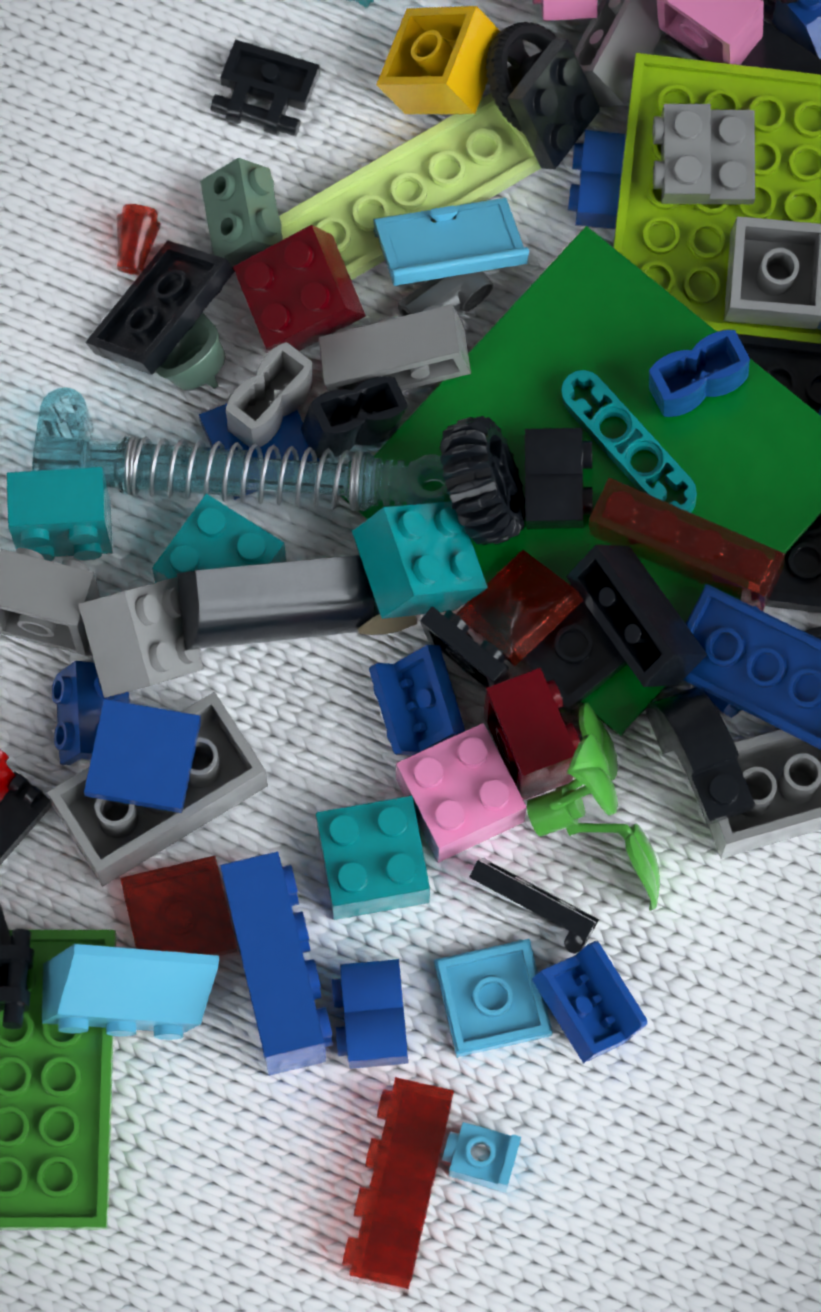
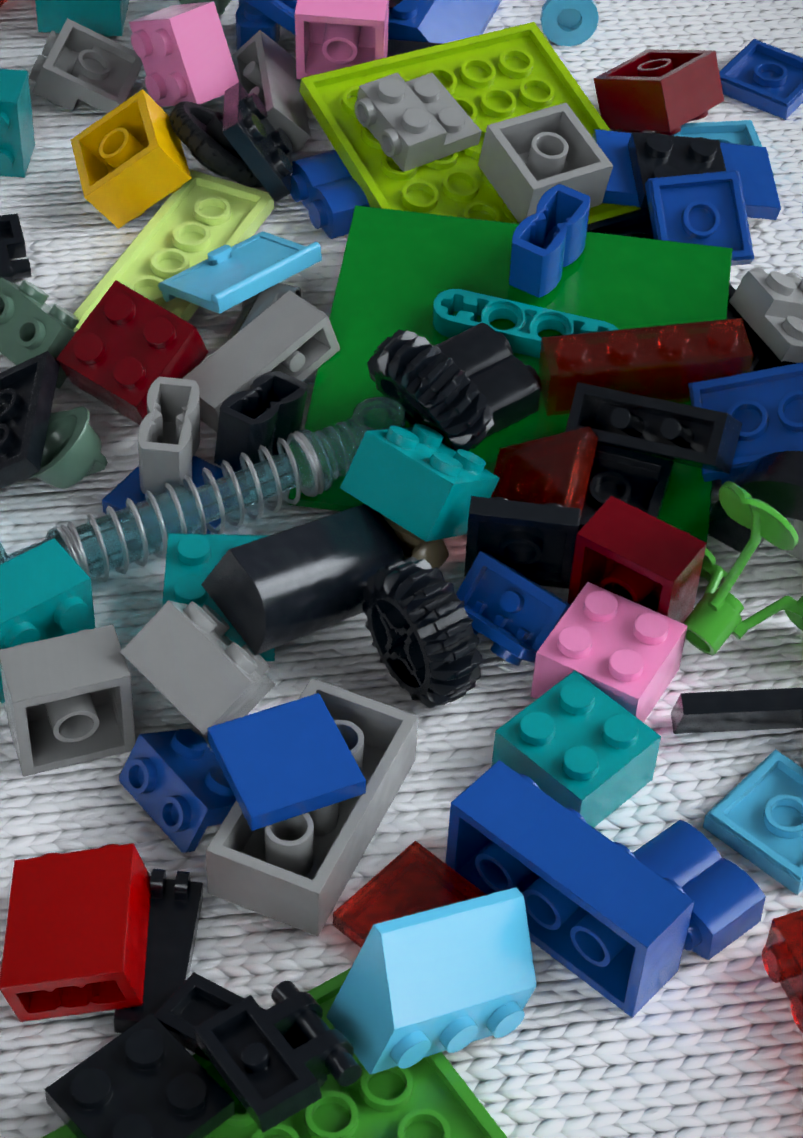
camera: 35 degrees left, 25 degrees down
(330, 691) = (422, 631): none -> black gear

